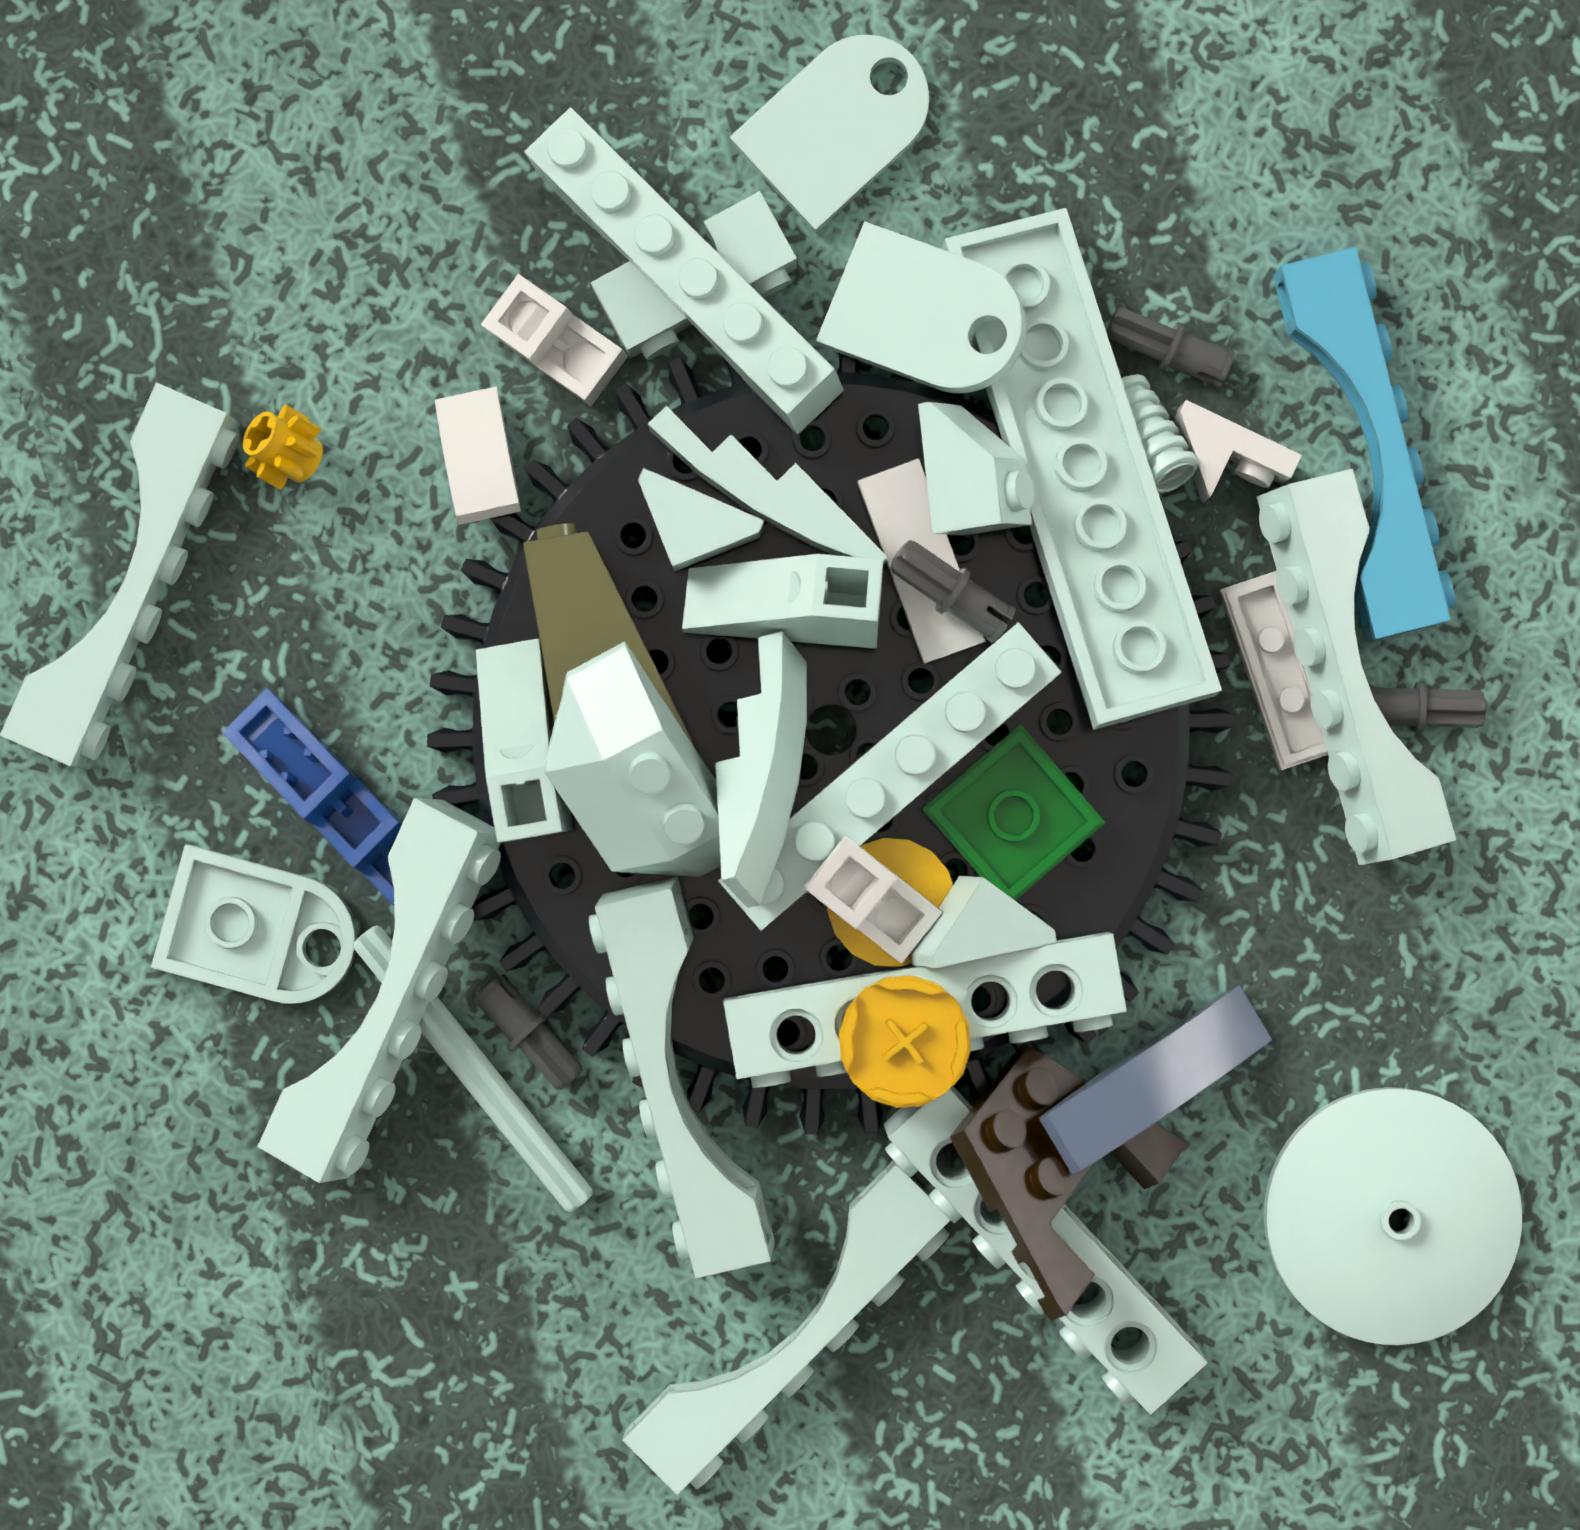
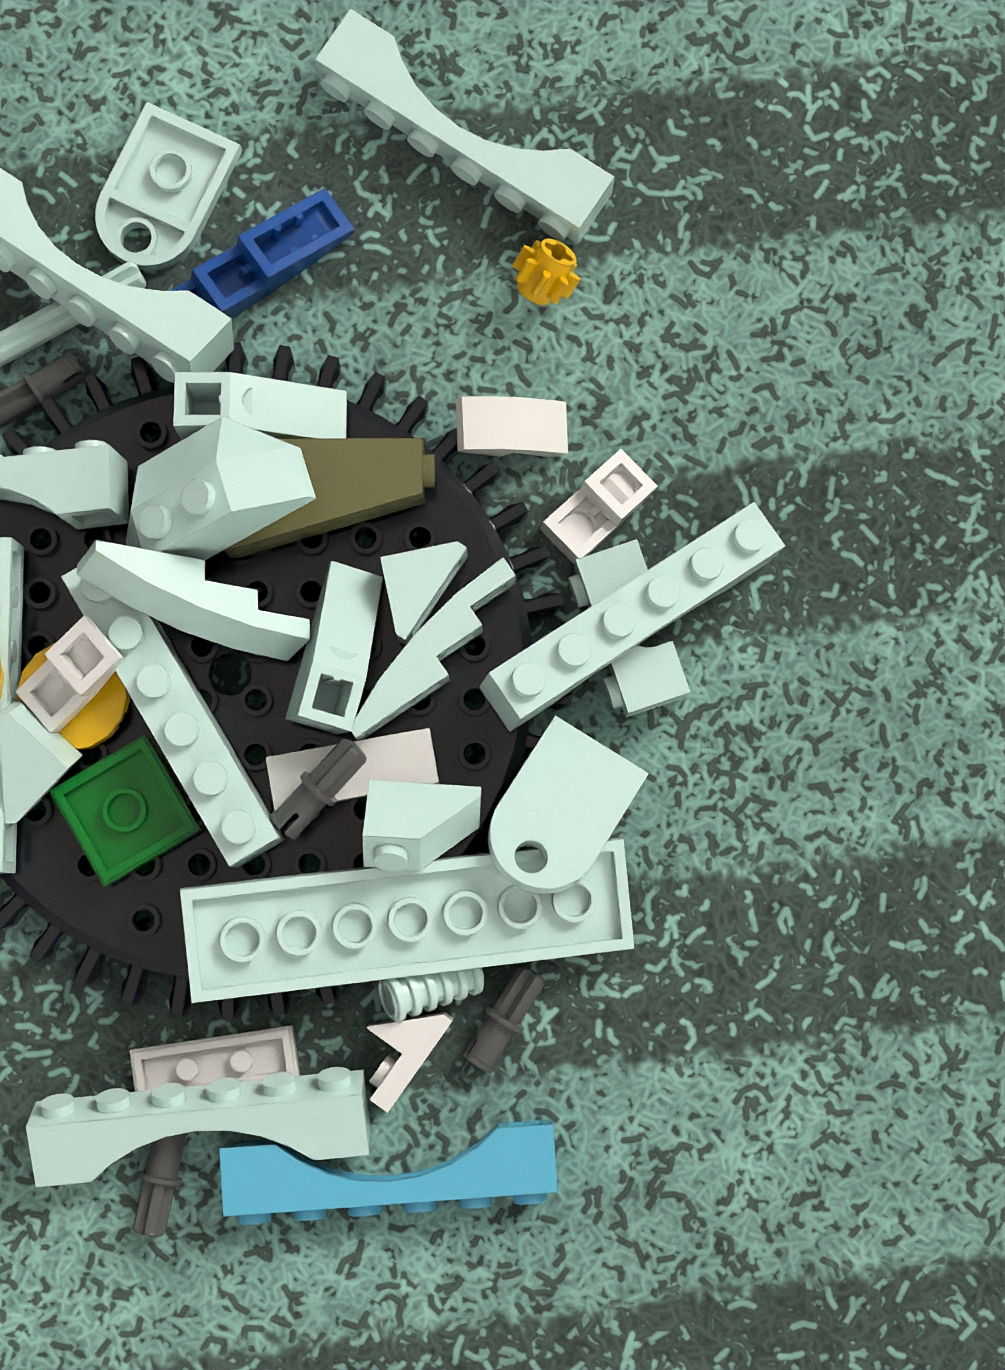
camera: 100 degrees right, 5 degrees down
(832, 129) = (735, 767): light aqua tile -> none

